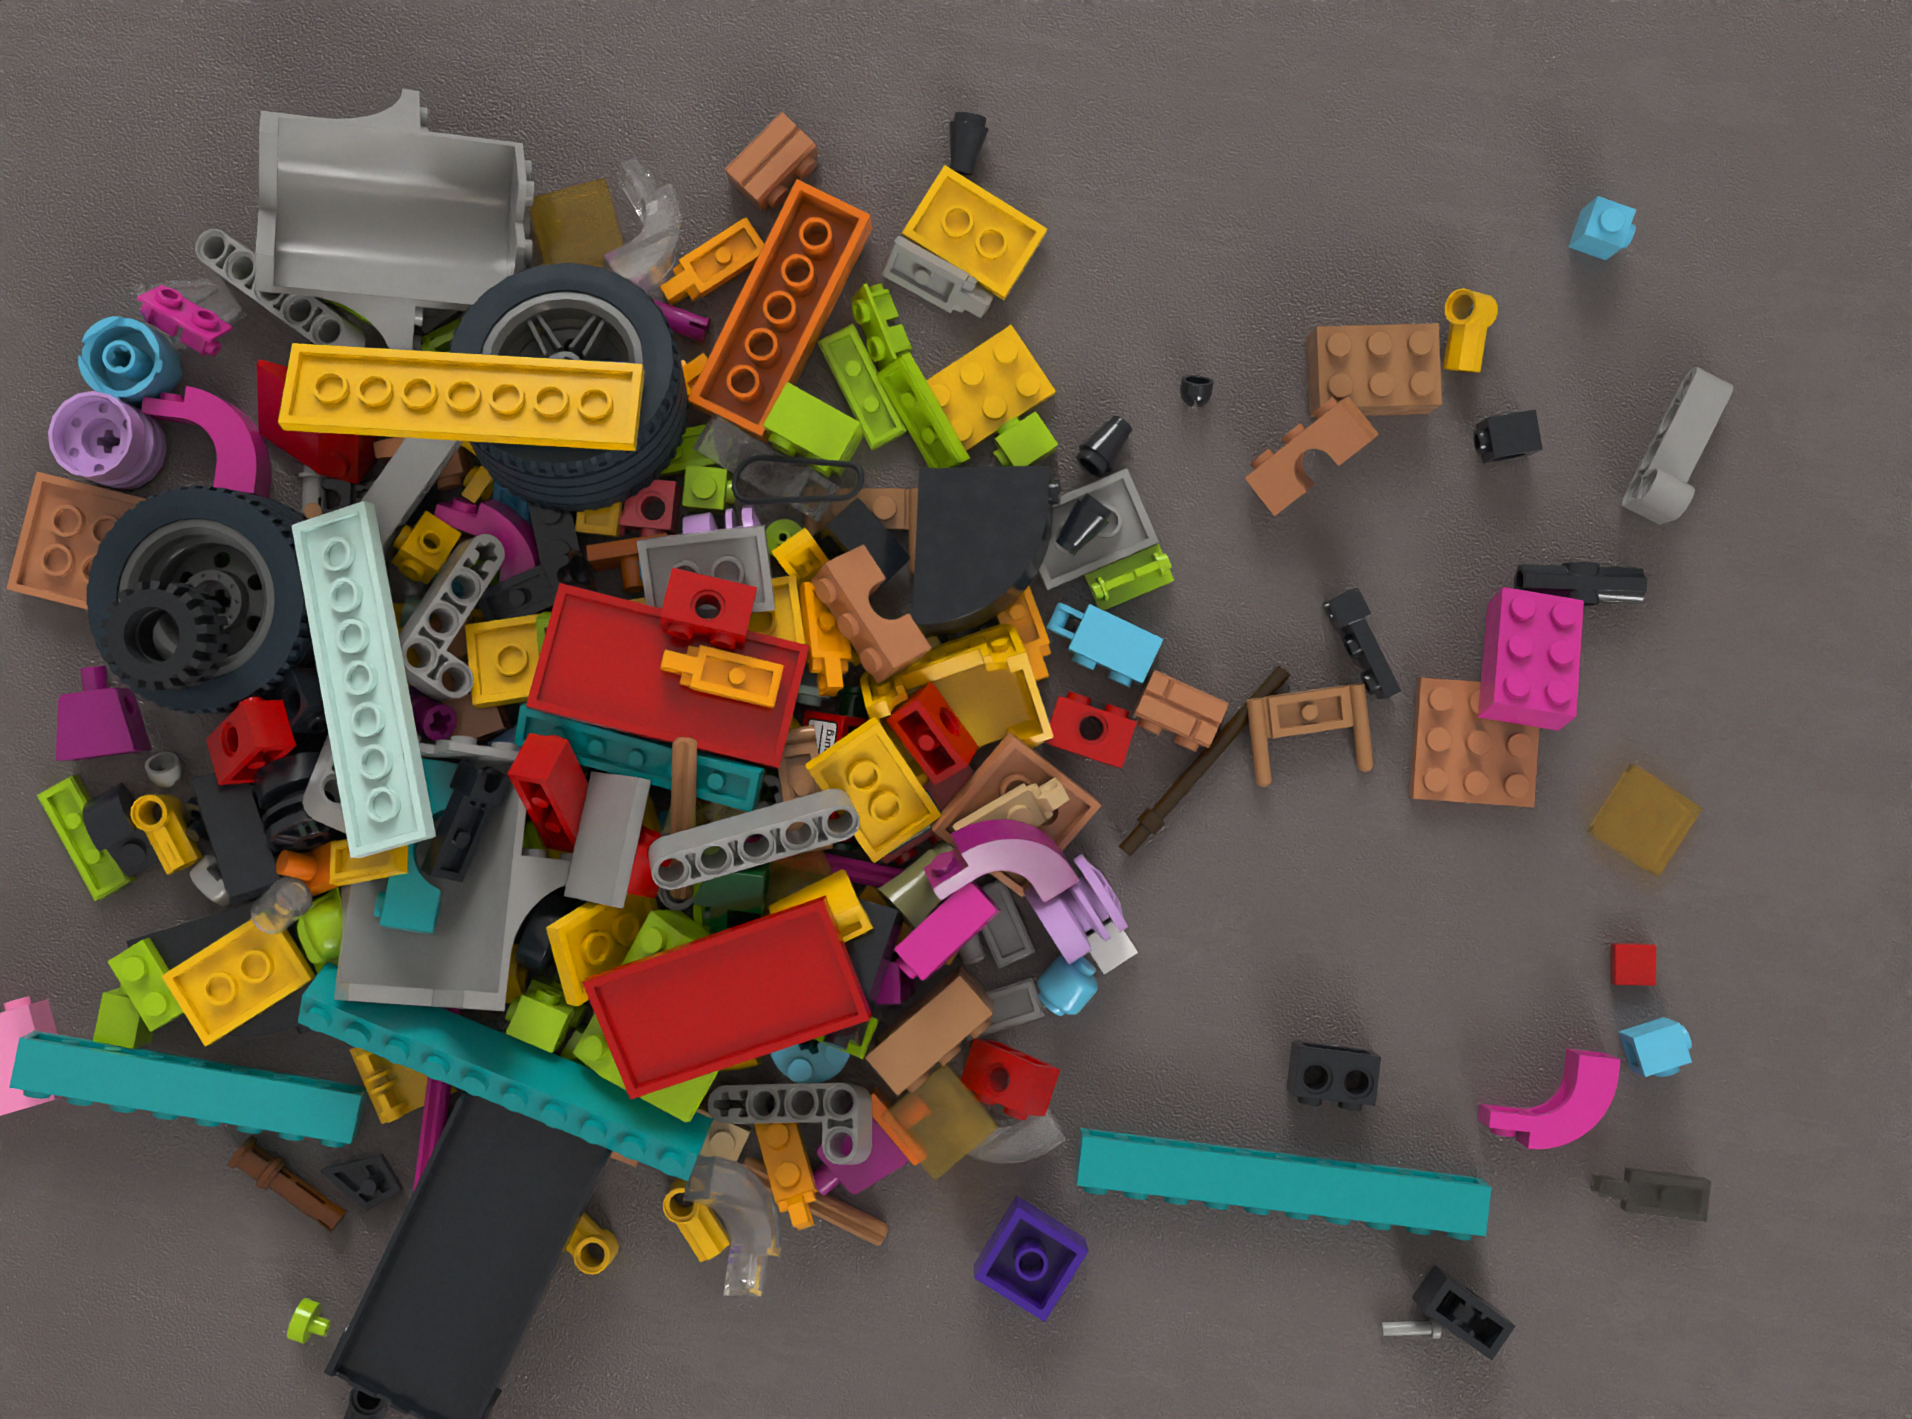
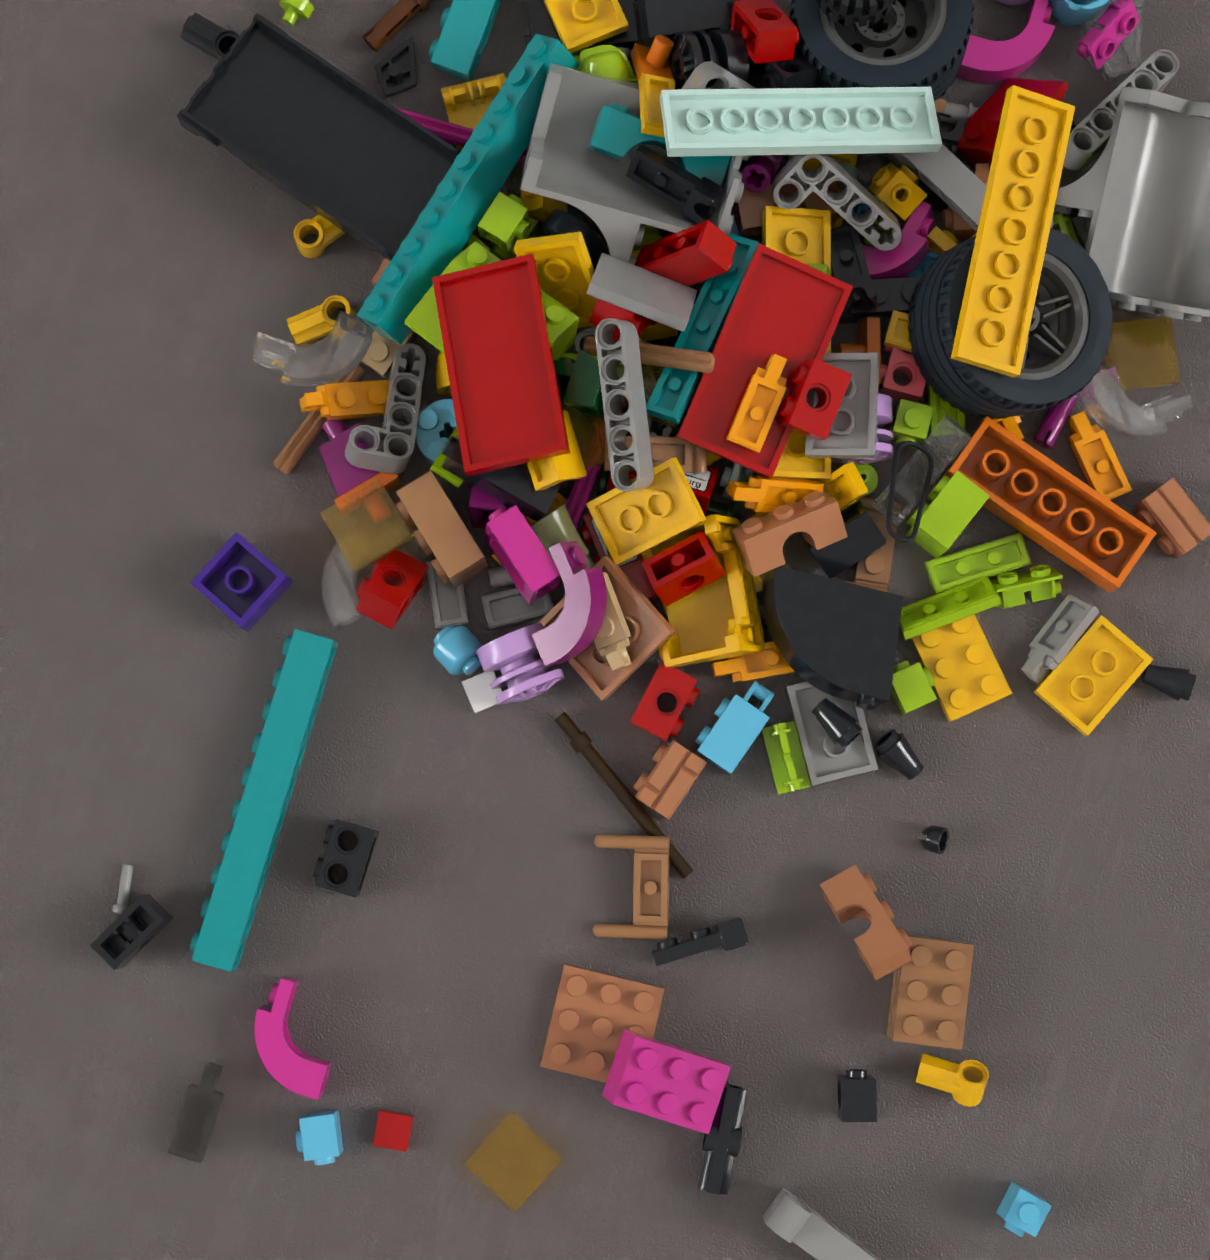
camera: 100 degrees right, 5 degrees down
(281, 905) = (629, 35): clear brick -> none

